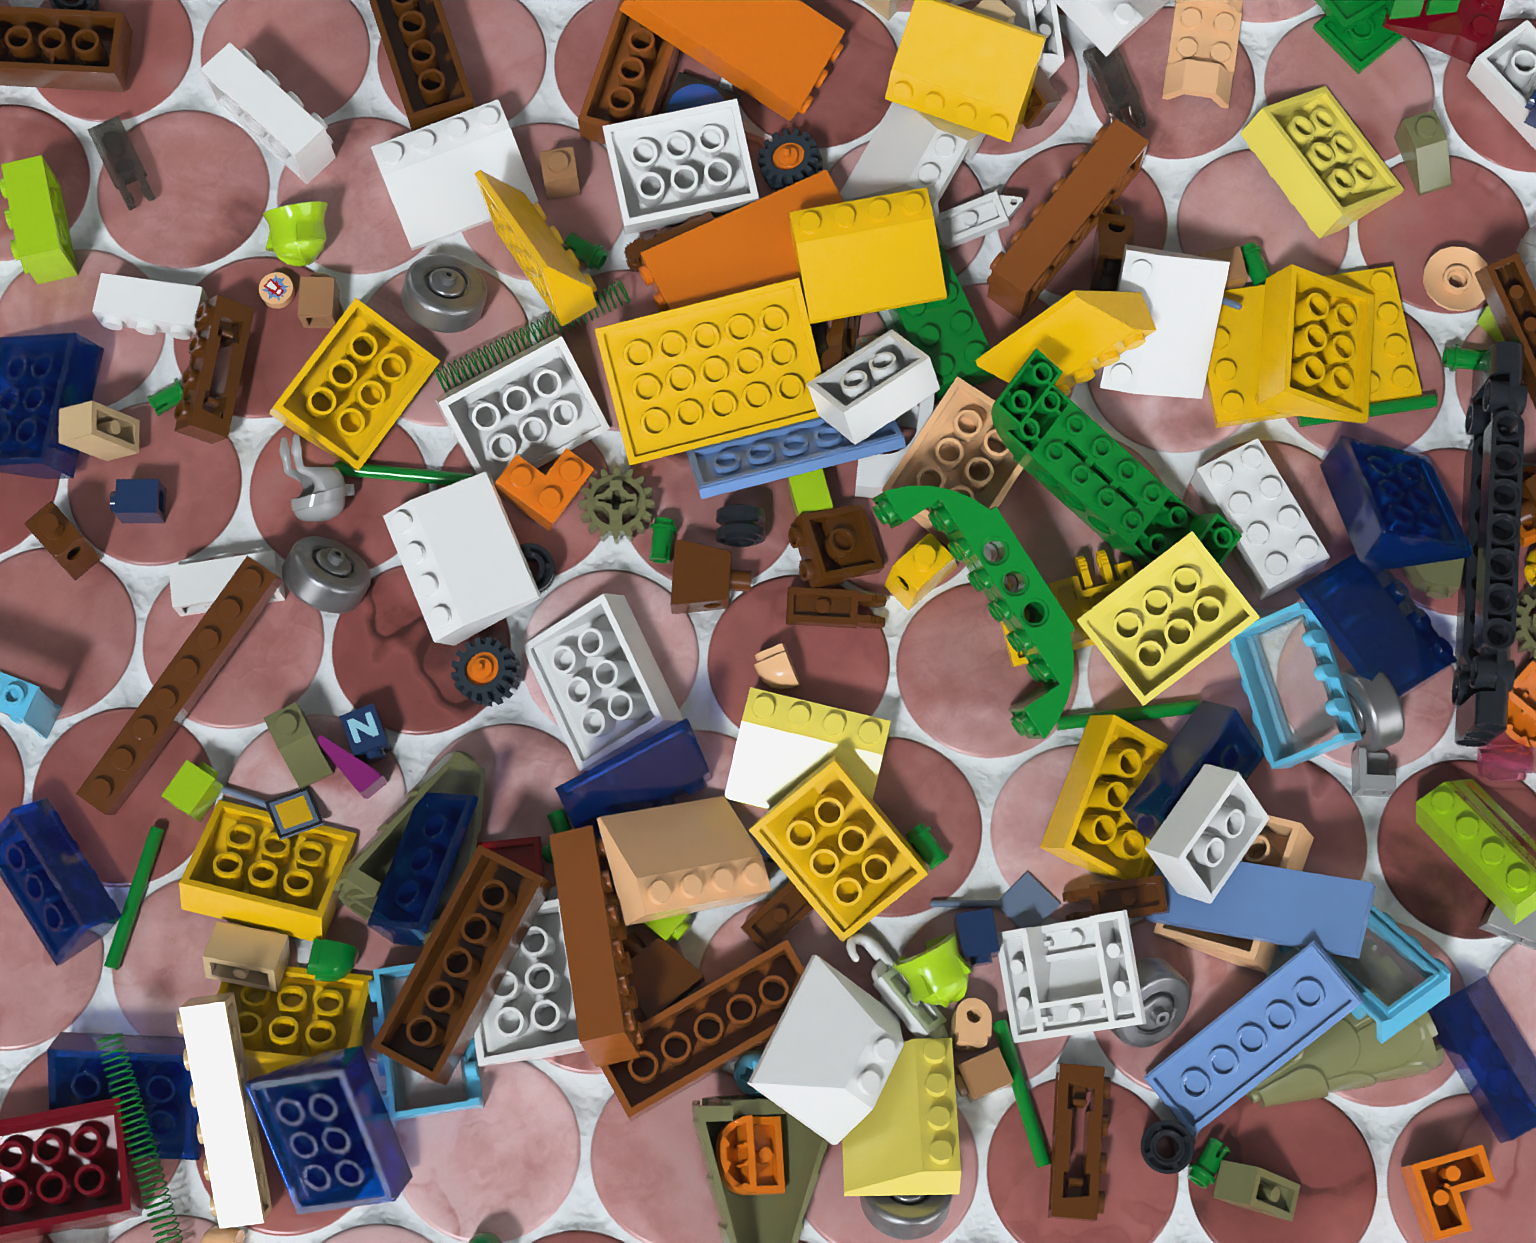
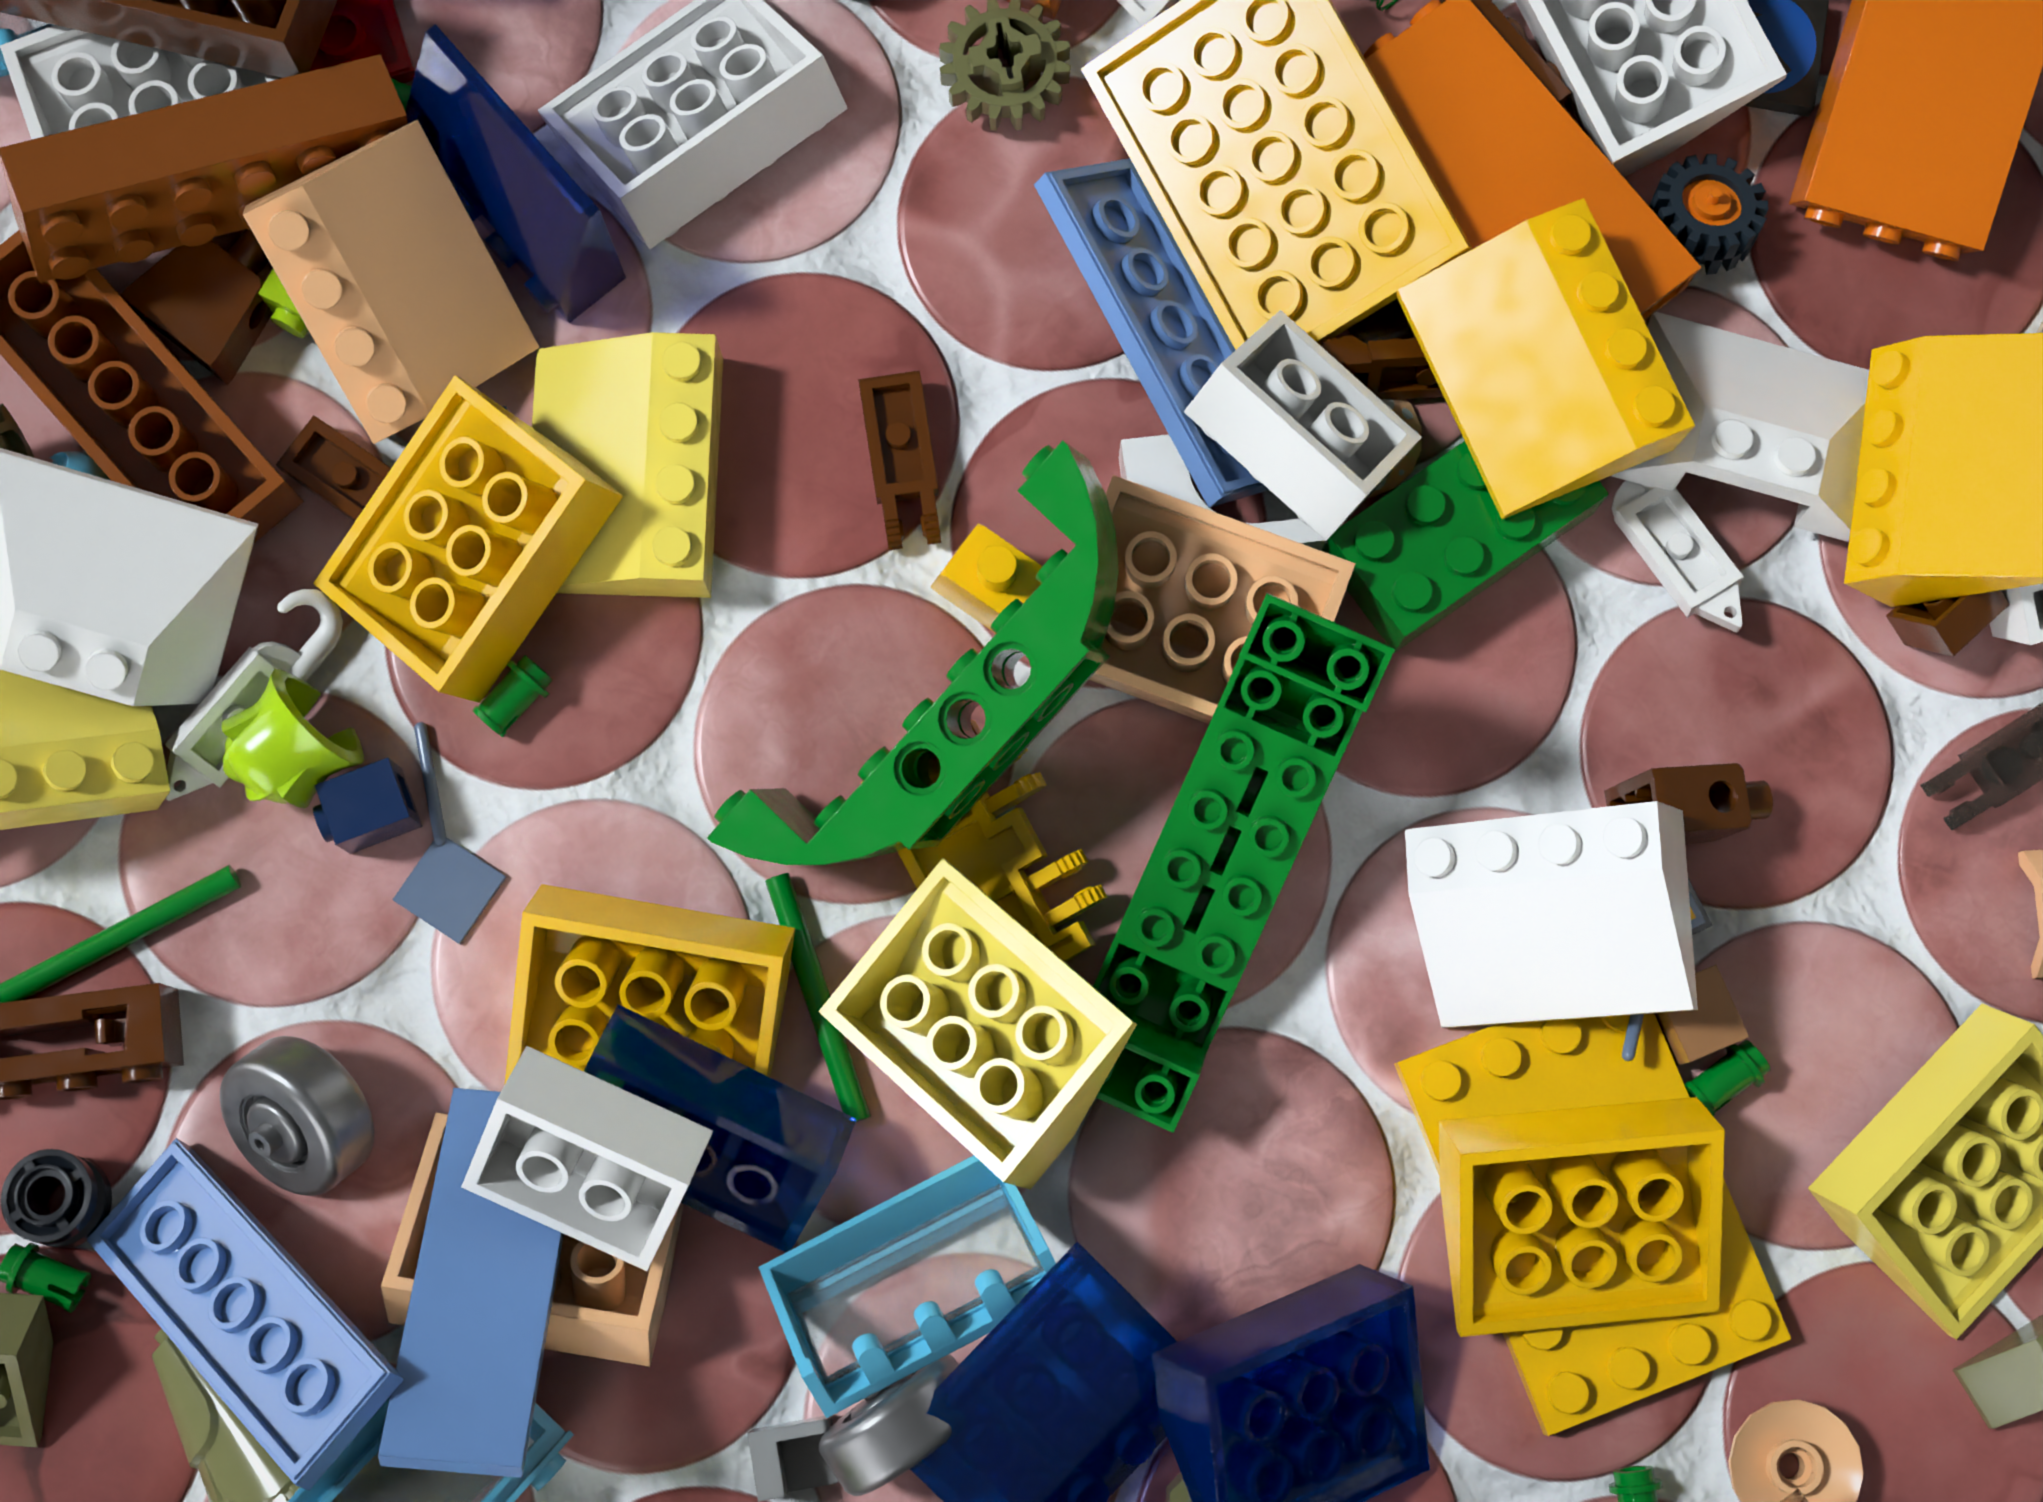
camera: 75 degrees right, 5 degrees up
(662, 540) = (961, 152): green pin -> none
(704, 578) = (905, 230): reddish brown torso -> none
(740, 525) = (1010, 267): black wheel -> none
(776, 668) = (776, 386): light nougat piece -> none
(809, 492) = (1091, 375): lime brick -> none
(835, 545) = (1002, 425): reddish brown plate -> none
(971, 1025) = (209, 824): light nougat piece -> none
(982, 1075) = (129, 862): medium nougat brick -> none
(1066, 218) = (1725, 710): dark orange brick -> none
(1070, 977) = (308, 970): white slope -> none
(1077, 335) = (1463, 746): yellow slope -> none
(1138, 896) = (467, 1036): reddish brown hinge -> none
(1254, 499) = (1228, 1167): white brick -> none
(1383, 408) = (1510, 1385): green bar -> none

